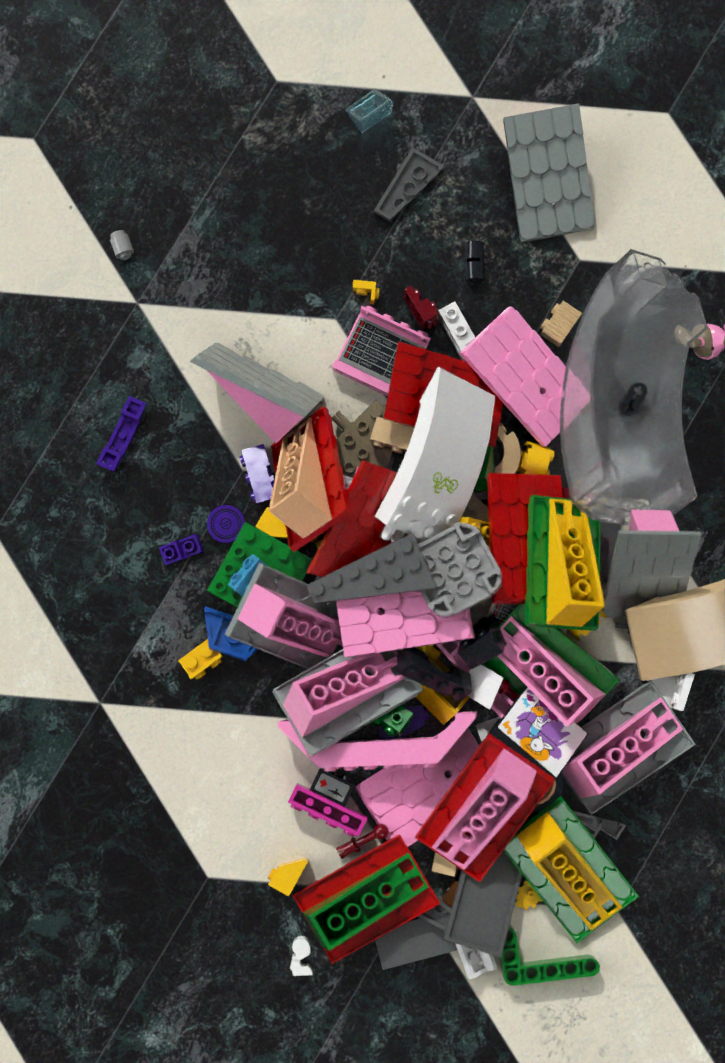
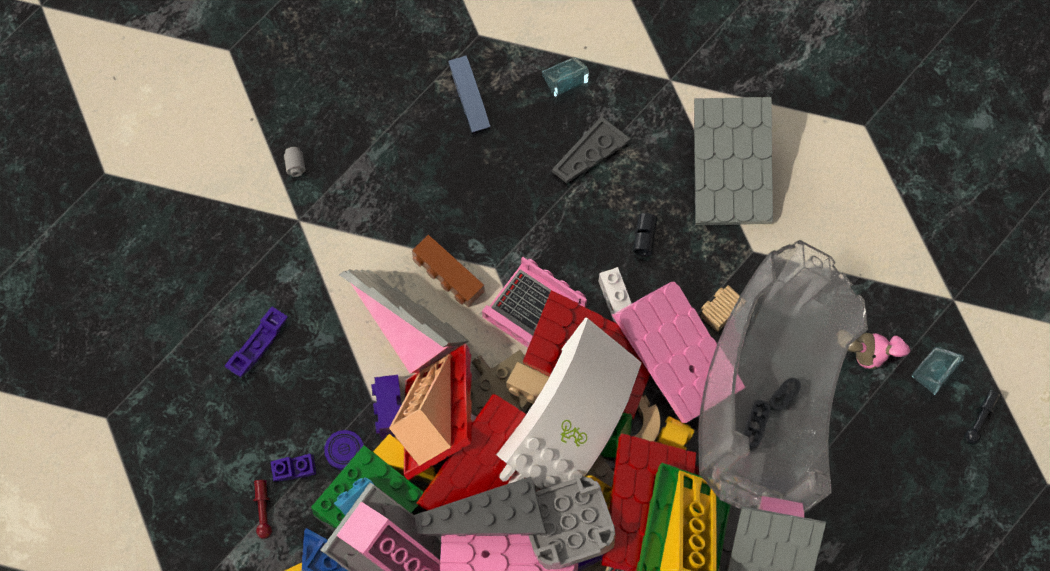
camera: 15 degrees right, 15 degrees down
(165, 612) = (263, 530): none -> dark red pin
(278, 145) = (469, 93): none -> sand blue slope
(291, 330) = (448, 271): none -> dark orange brick
(365, 287) = (530, 241): yellow bracket -> none
(423, 311) = (583, 270): dark red plate -> none
(616, 430) = (761, 420): none -> black beam

